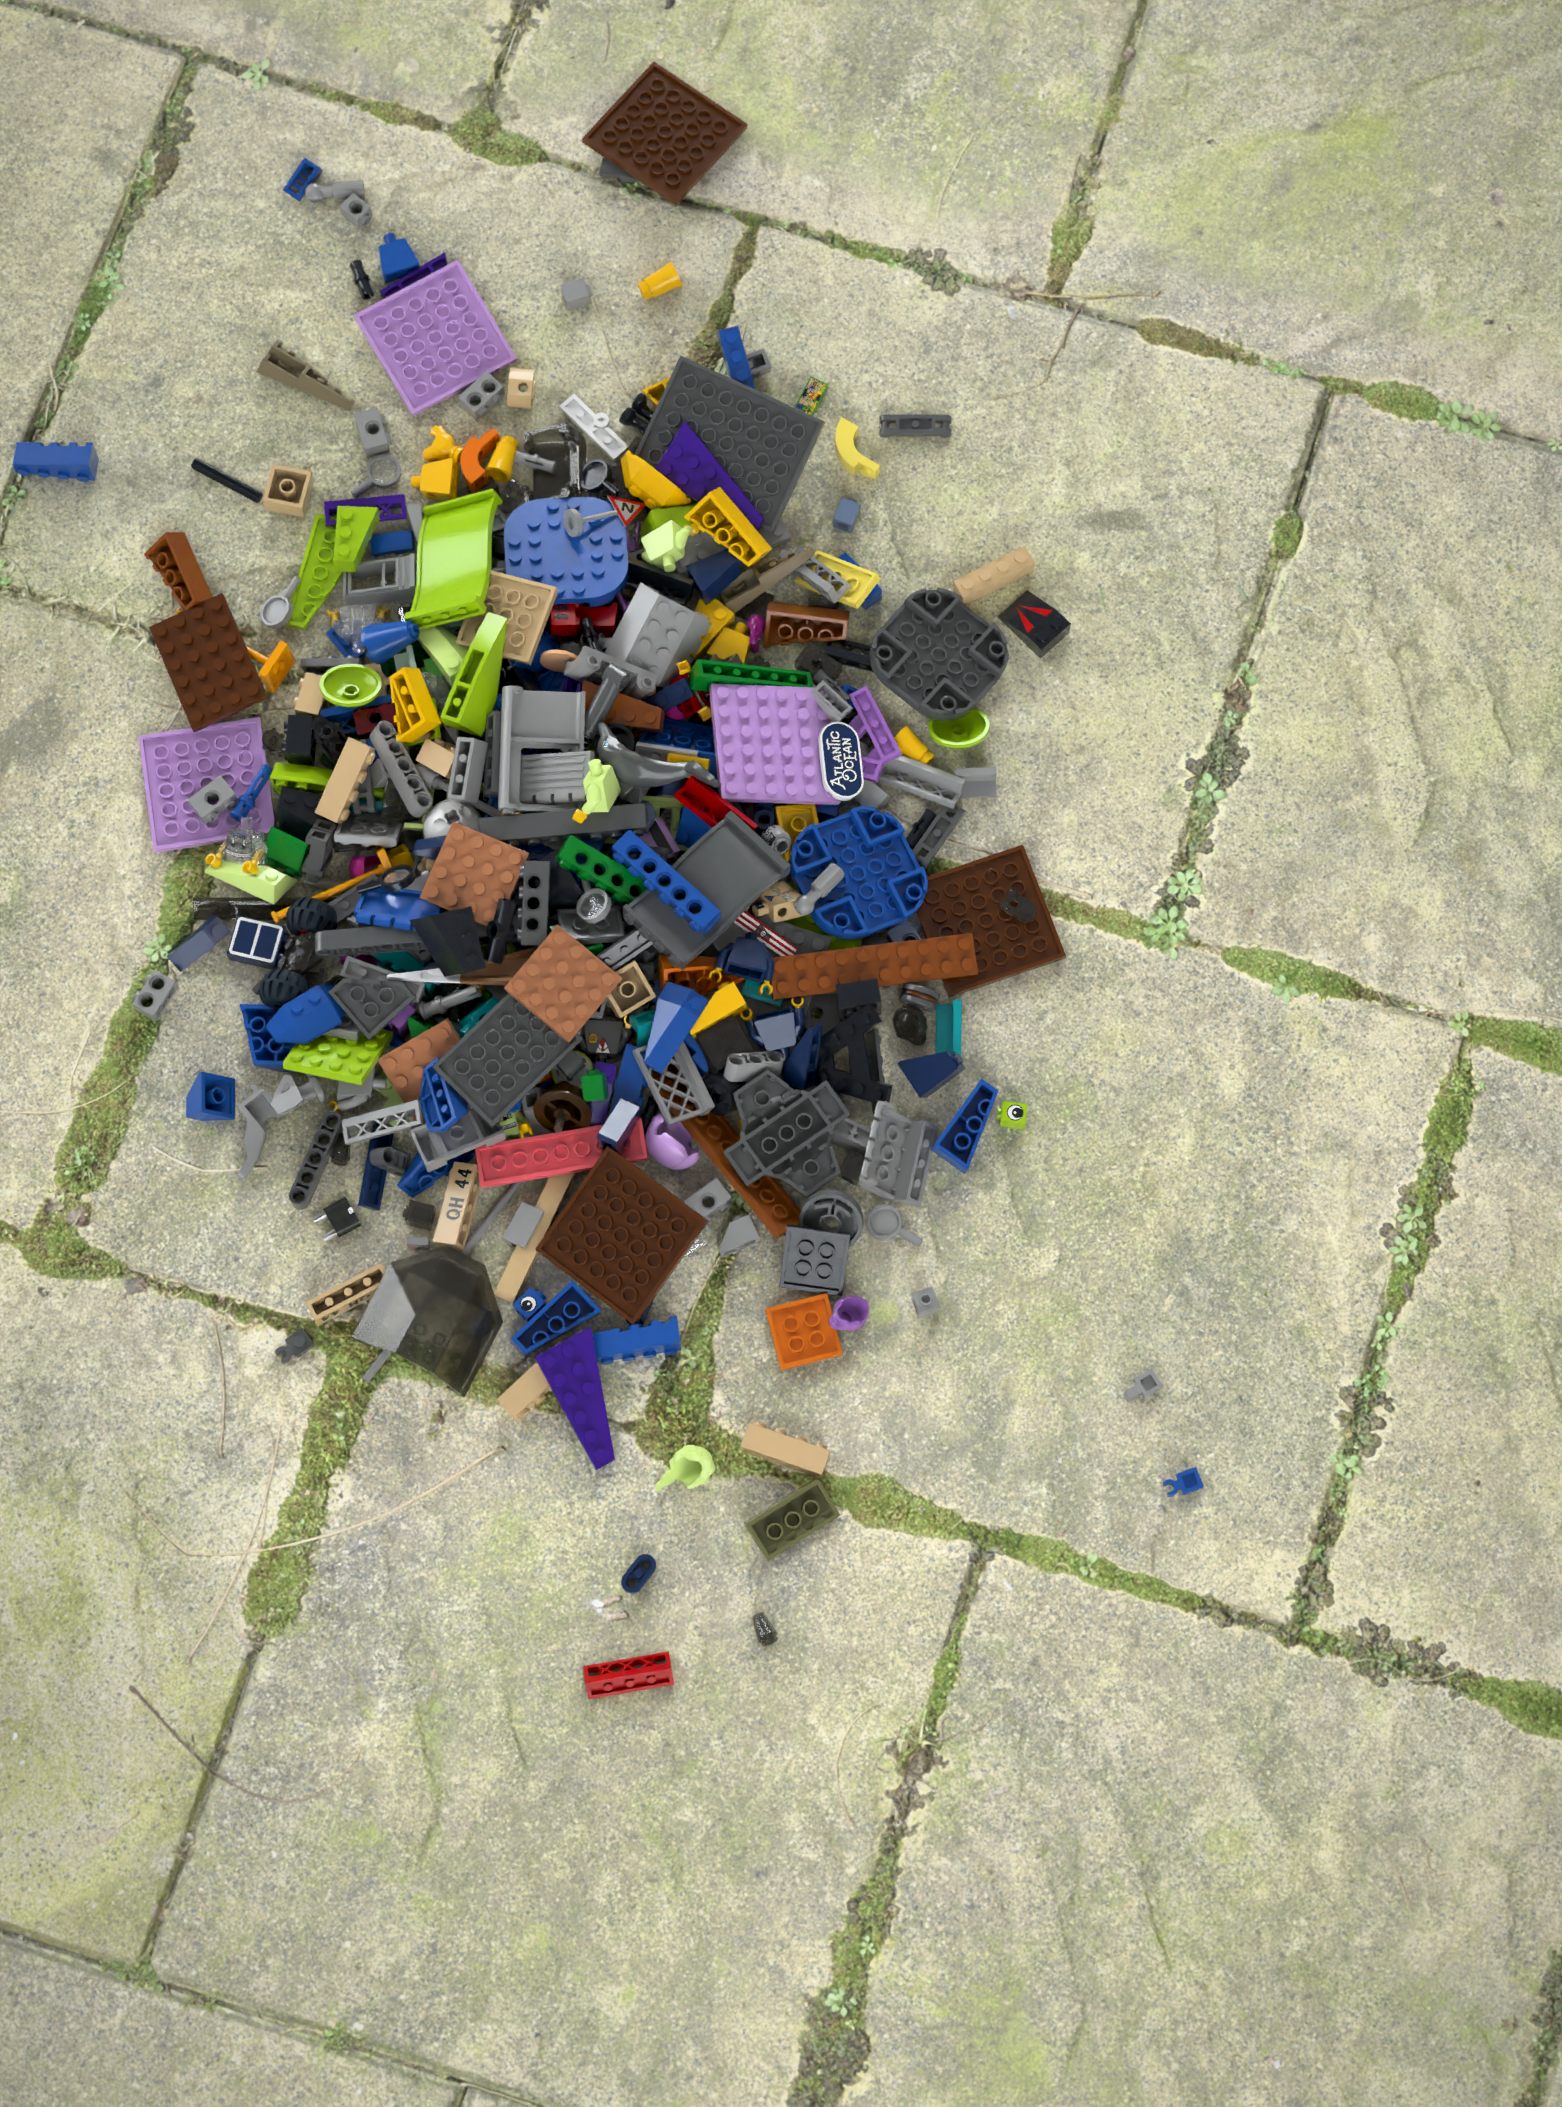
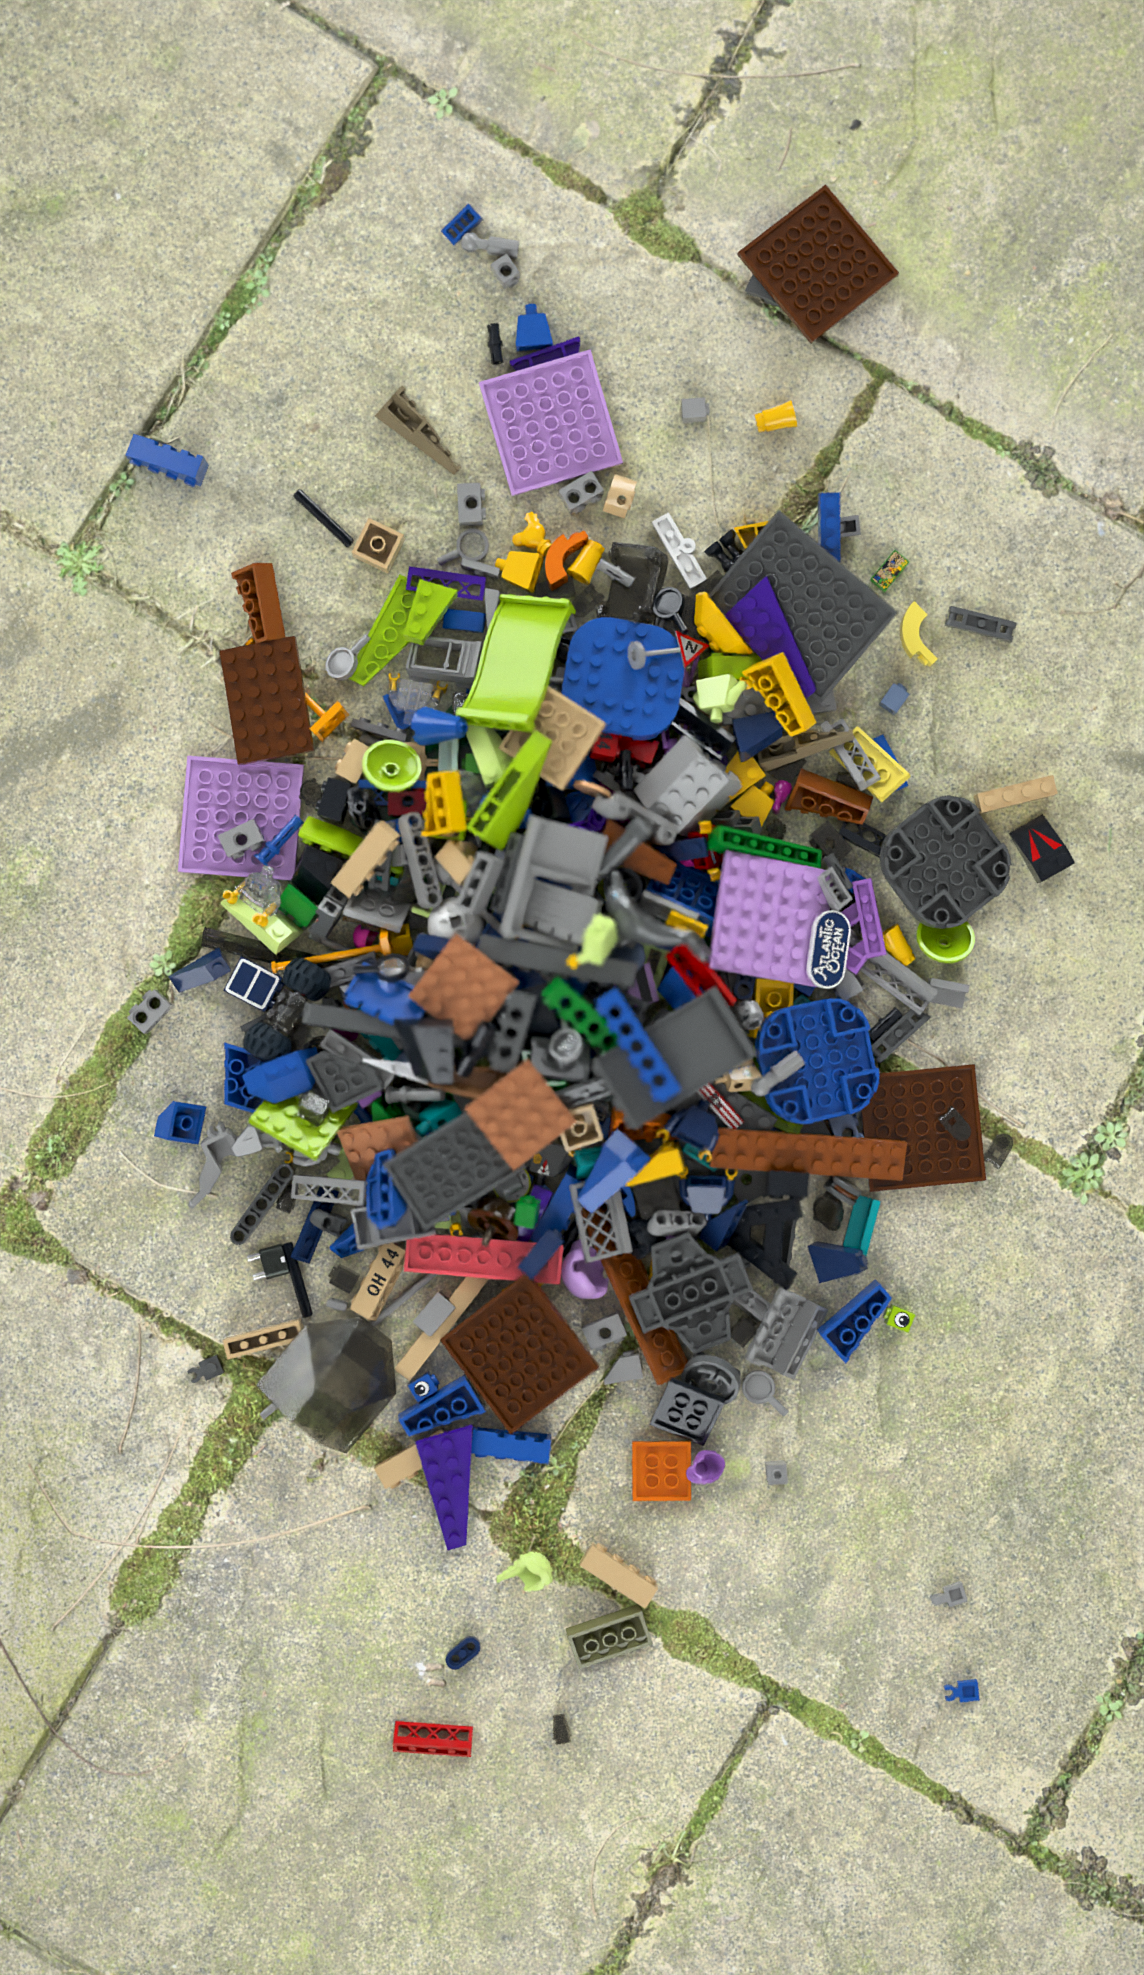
camera: 10 degrees right, 15 degrees up
(348, 1037) = (313, 1108): none -> clear smoke brick
(370, 1230) = (297, 1281): none -> black axle
(397, 488) = (480, 569): none -> light grey plate
(1073, 917) = (1002, 1143): none -> clear smoke plate

